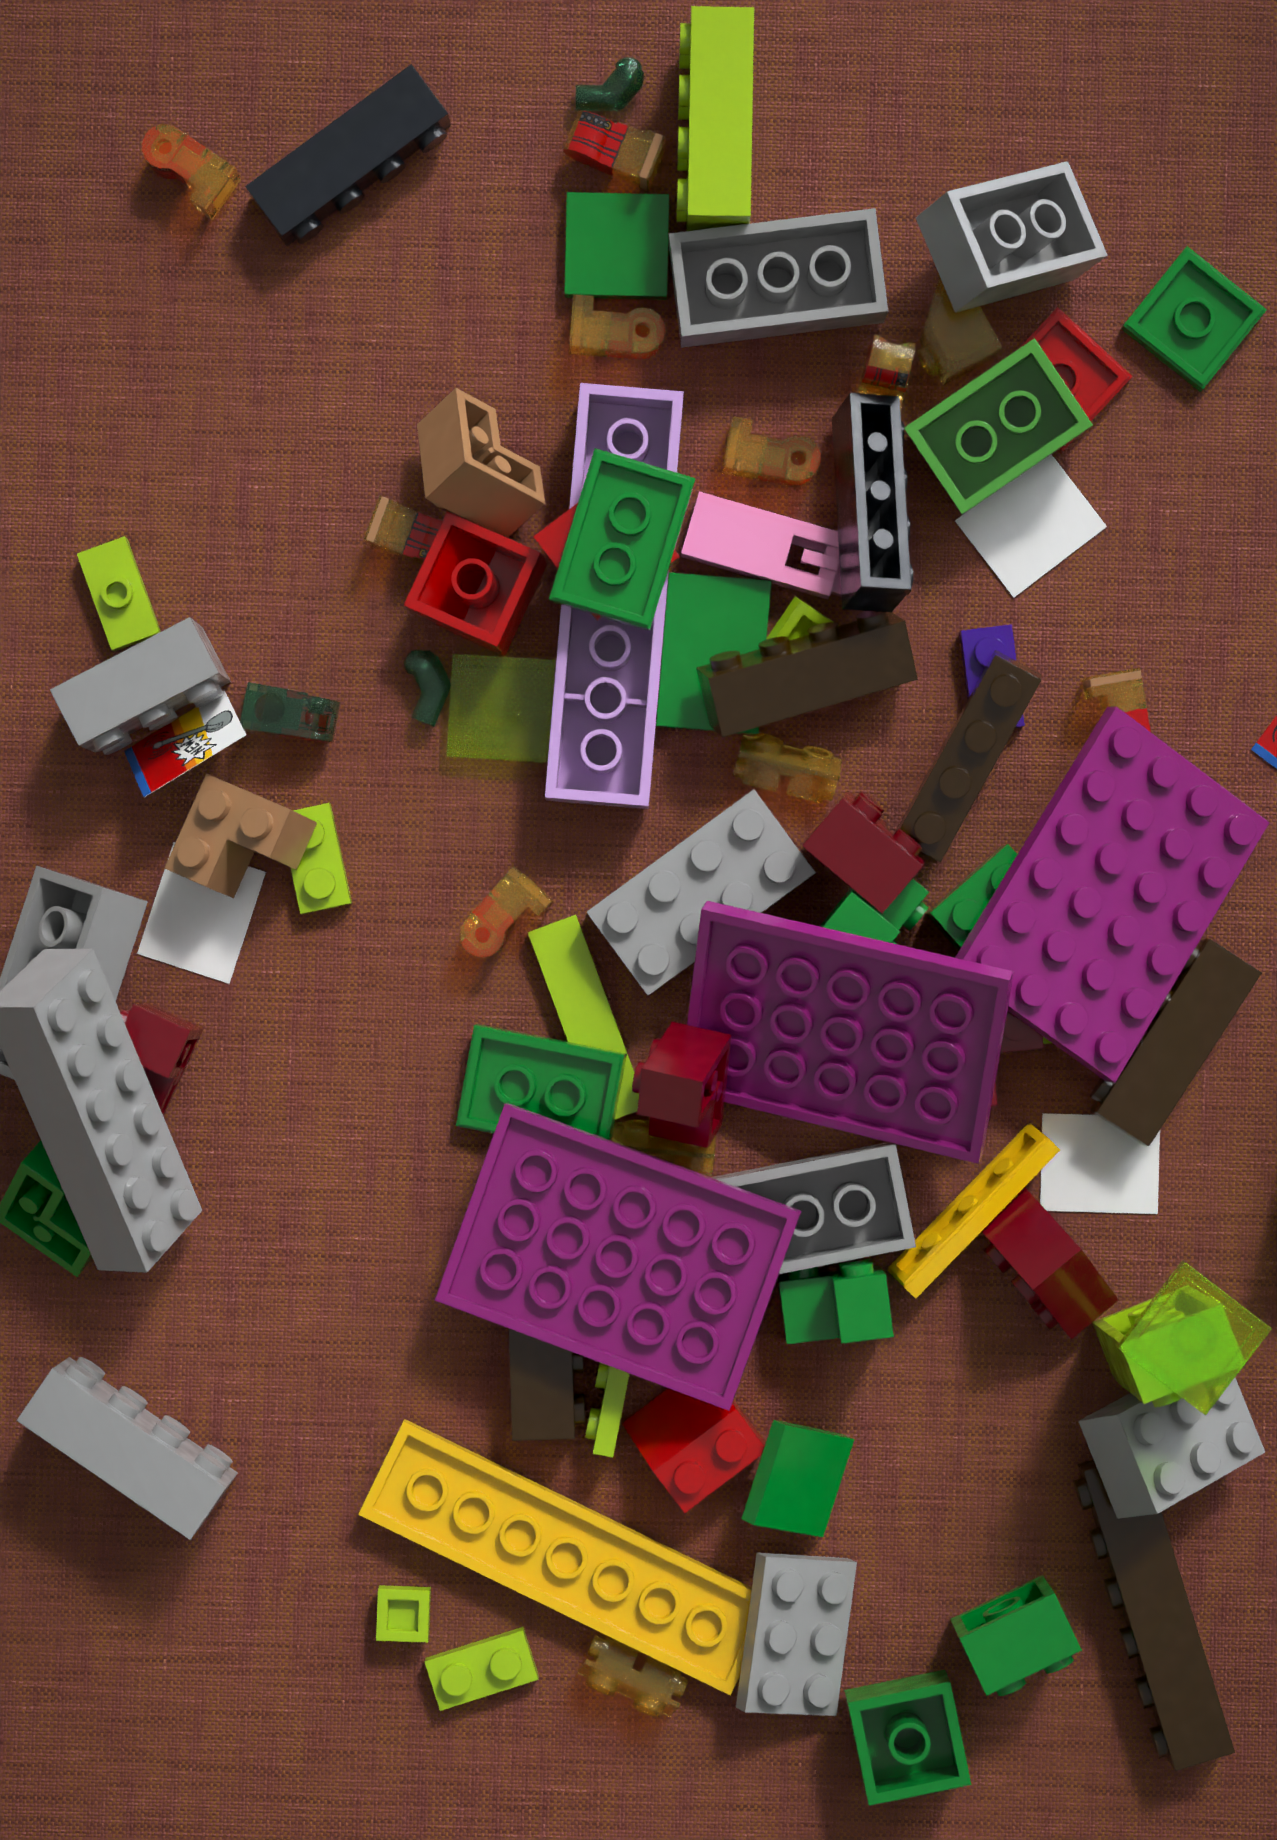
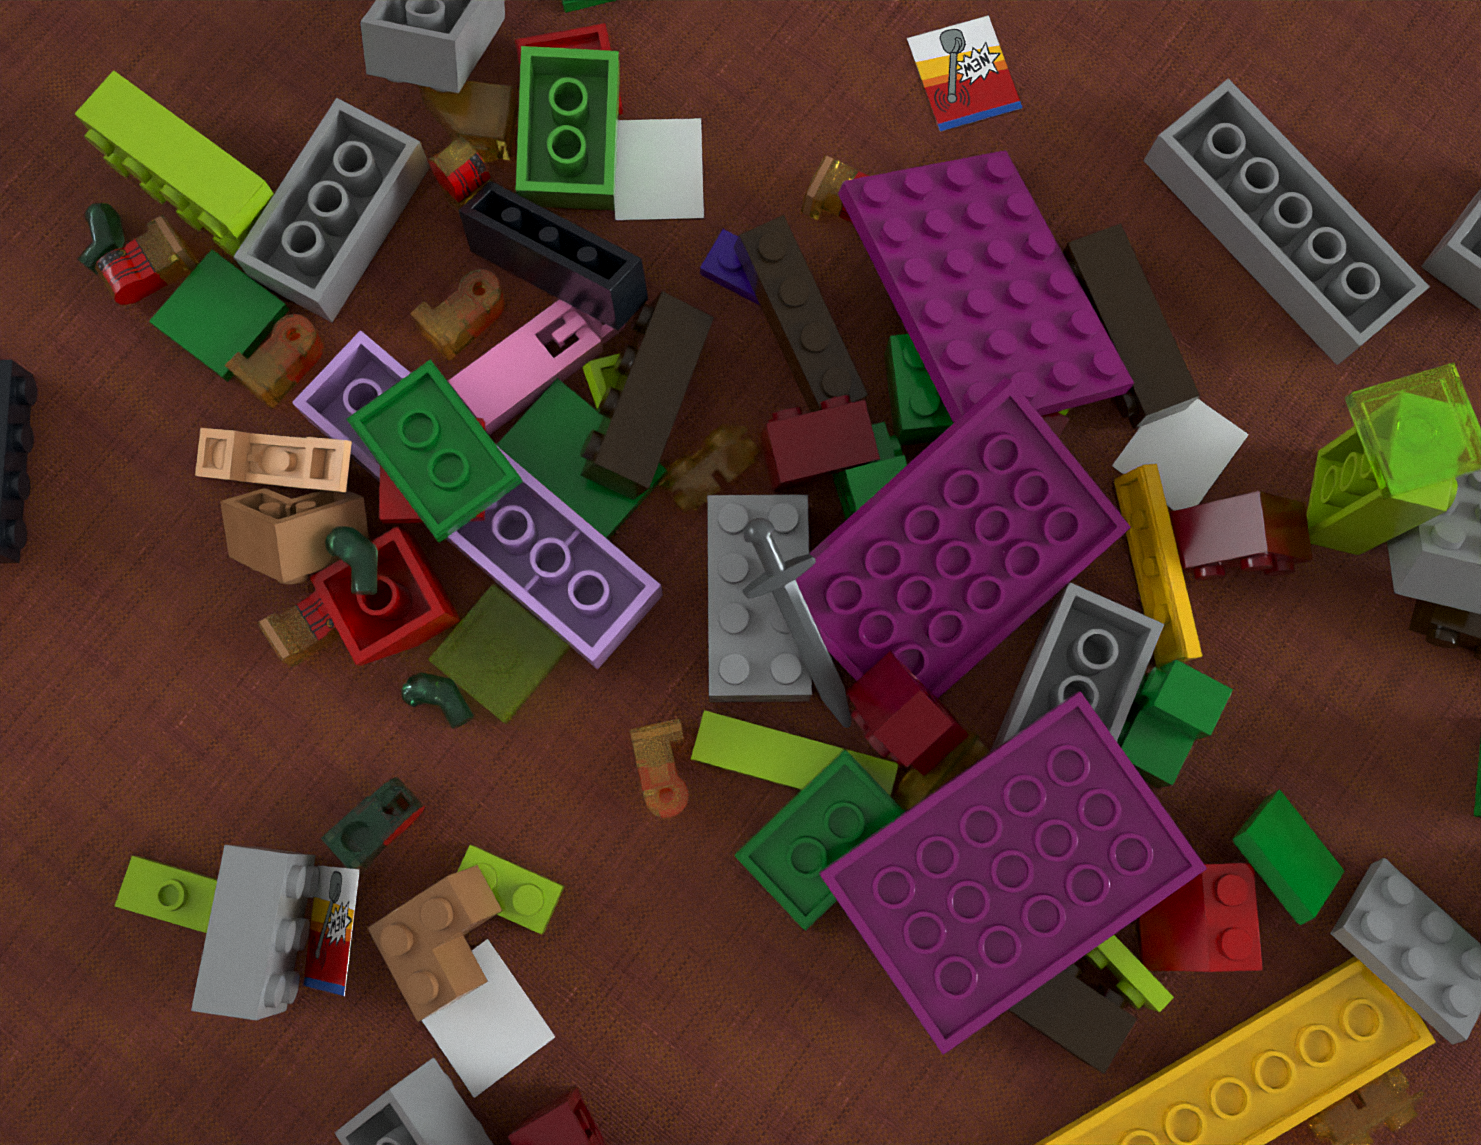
camera: 60 degrees left, 10 degrees down
(493, 539) = (359, 554): none -> clear green arm
(525, 400) = (274, 459): none -> light nougat slope
(715, 906) = (780, 580): none -> dark grey sword

